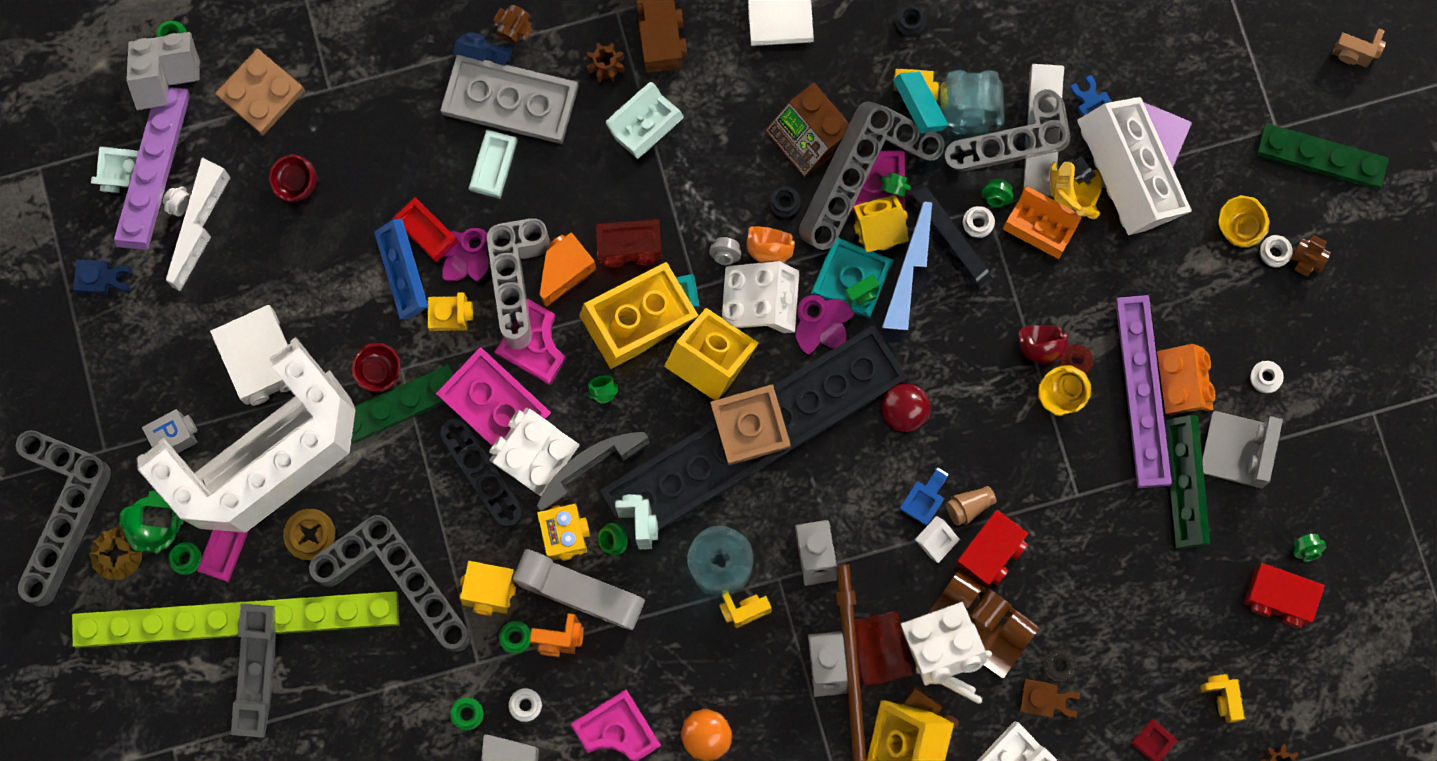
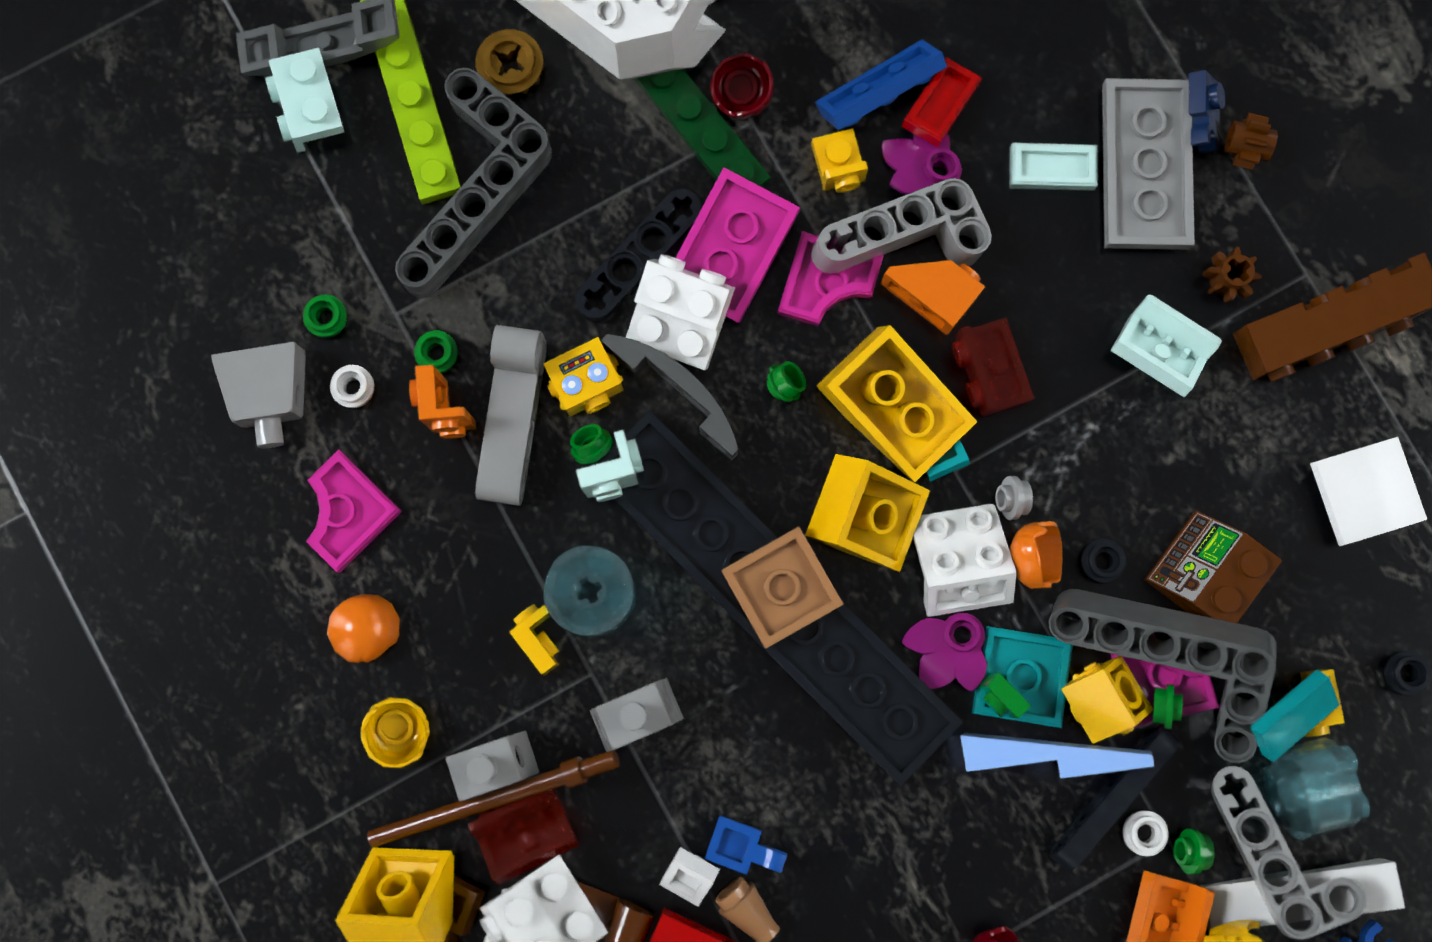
camera: 70 degrees right, 5 degrees up
(298, 691) = (305, 97): none -> light aqua bracket
(487, 588) = (486, 298): yellow head -> none
(787, 724) = (395, 732): none -> yellow hair
(905, 407) = (860, 791): dark red hair -> none

